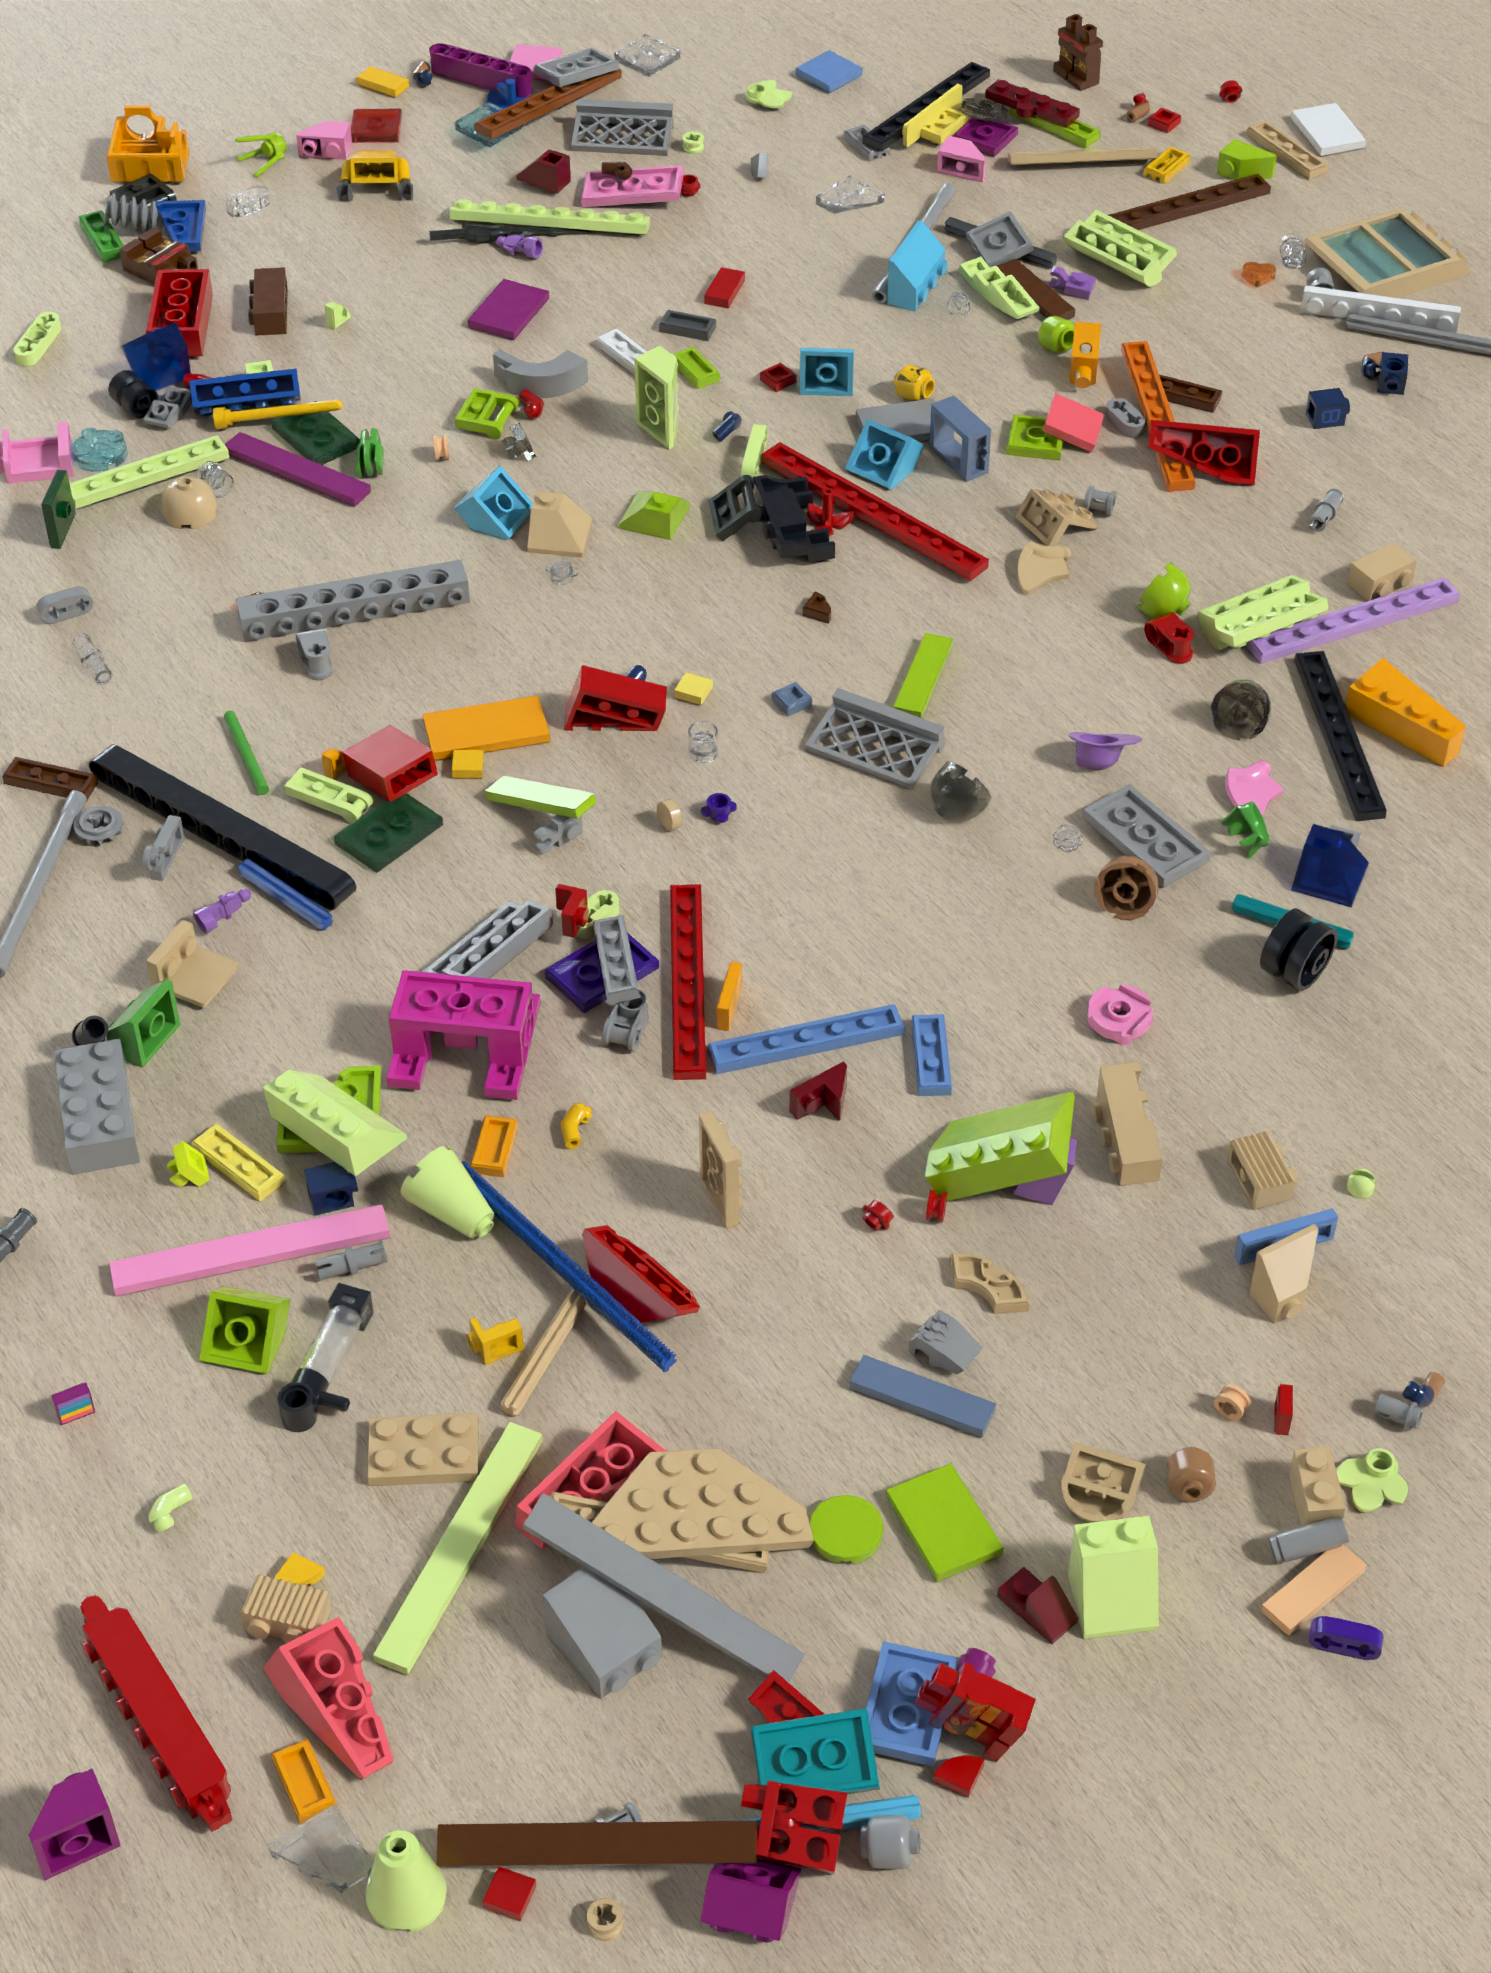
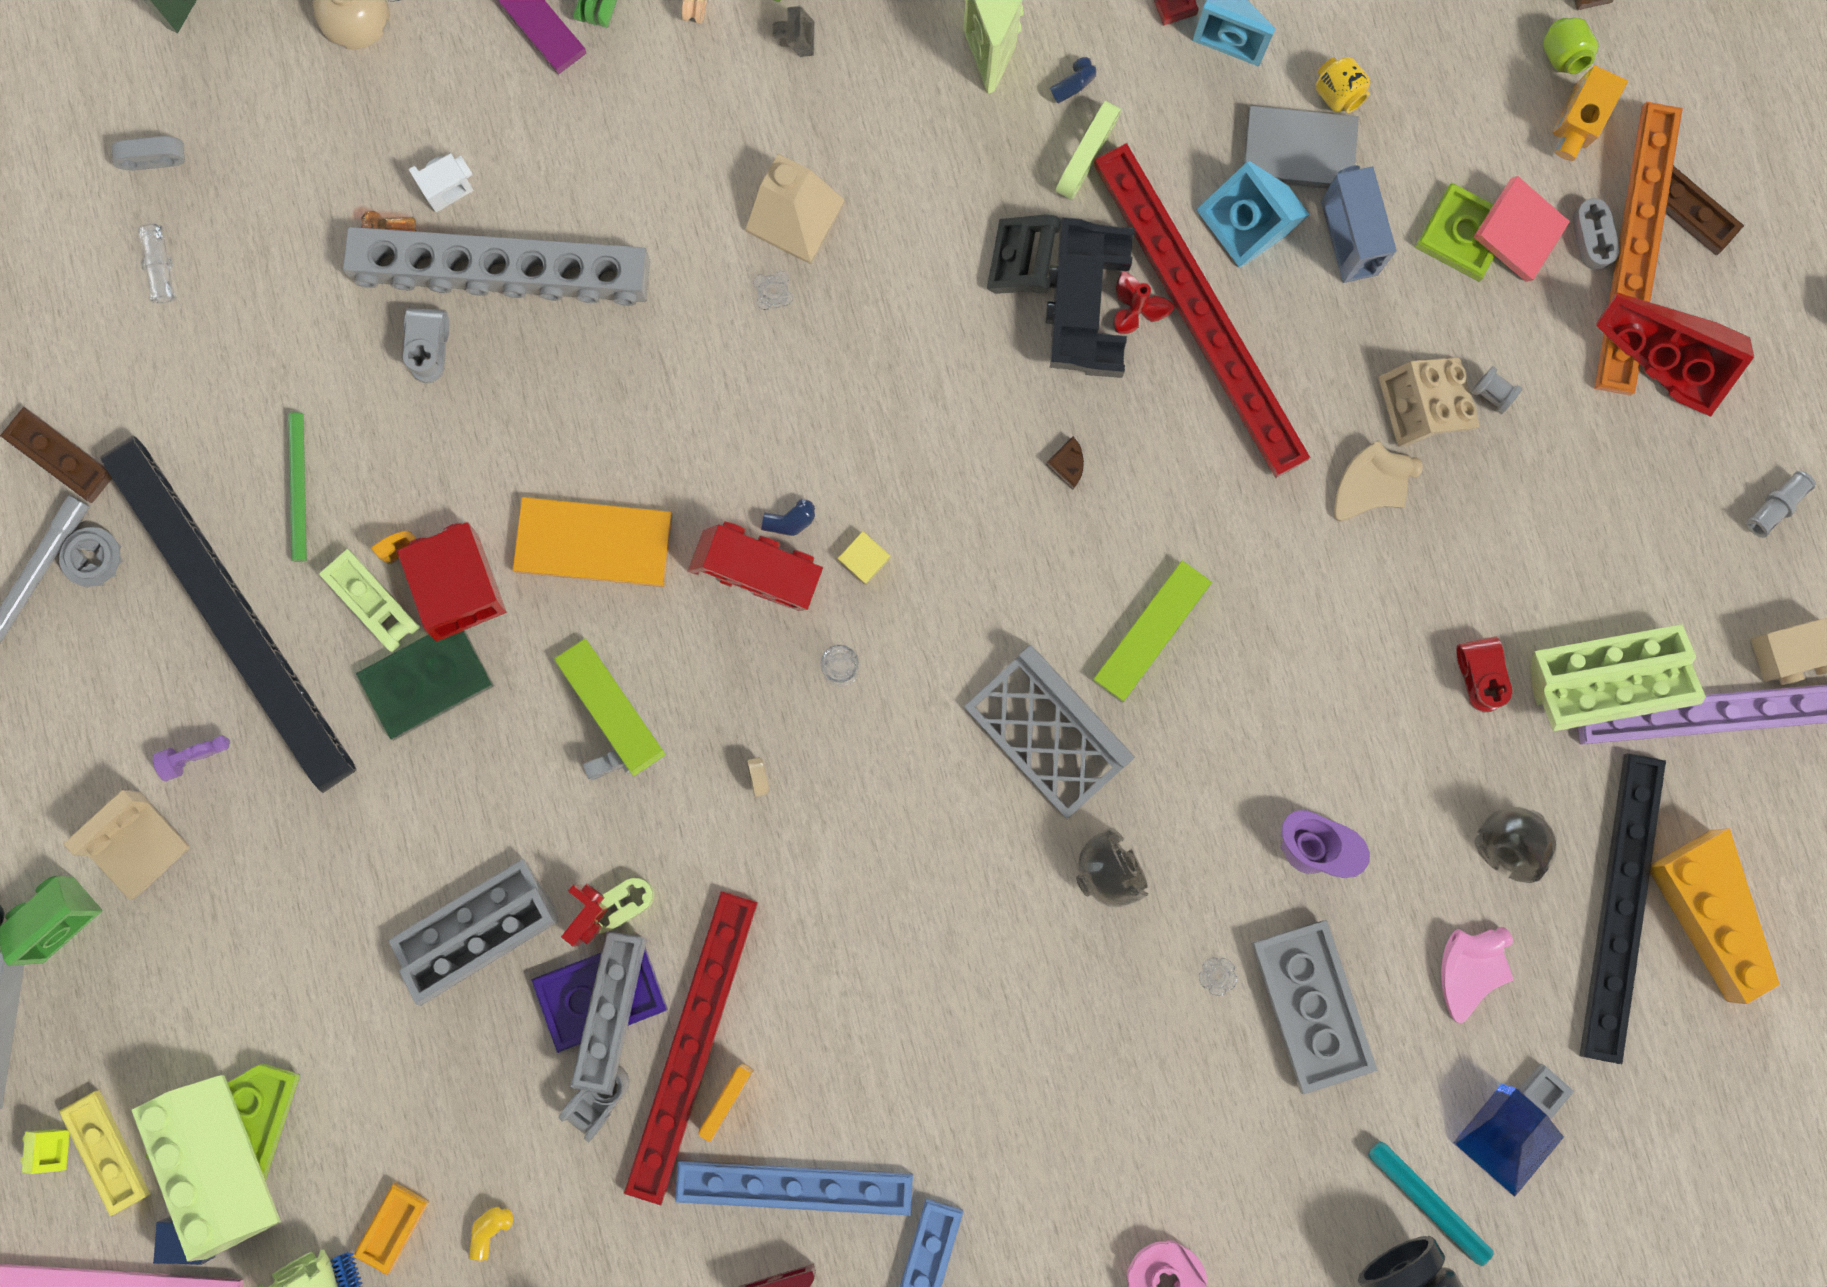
camera: 15 degrees right, 35 degrees up
(164, 850) = (145, 641): light grey hinge -> none
(285, 894) = (274, 750): blue axle -> none
(293, 569) = (443, 180): none -> white brick
(463, 1011) = (432, 1080): dark pink piece -> none
(468, 764) = (551, 598): yellow tile -> none
(495, 505) = (727, 146): medium azure slope -> none
(654, 514) = (925, 217): lime slope -> none
(718, 807) = (822, 790): dark purple plate -> none
(792, 699) = (977, 616): sand blue tile -> none
(1126, 887) = (1255, 1094): medium nougat cylinder -> none
(1166, 593) = (1508, 605): lime cylinder -> none
(1246, 819) = (1449, 1046): bright green piece -> none

